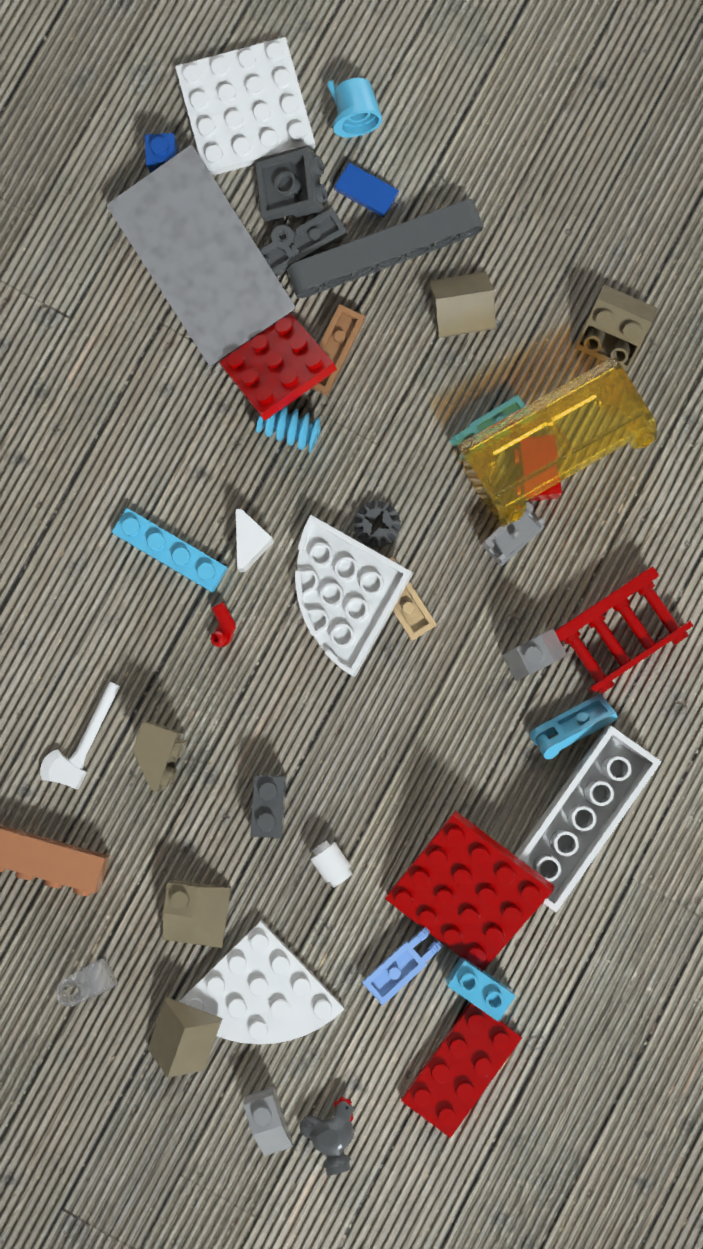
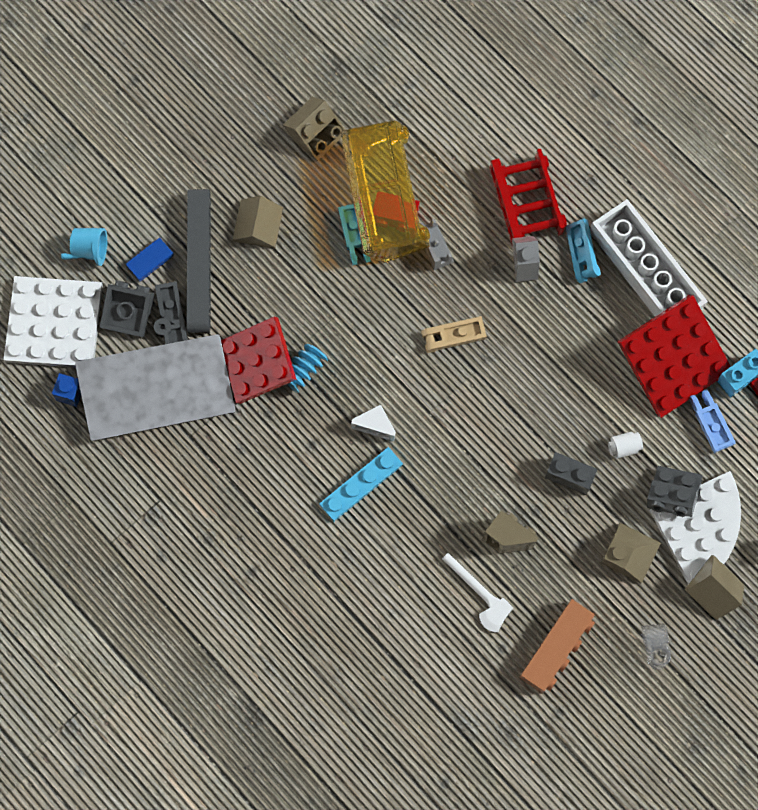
camera: 80 degrees left, 10 degrees down
(225, 627) = (431, 463): red arm -> none
(288, 945) = (674, 491): none -> dark grey plate
(338, 342) = (250, 311): medium nougat plate -> none
(345, 592) = (436, 369): white plate -> none
(381, 537) = (394, 343): dark grey gear -> none

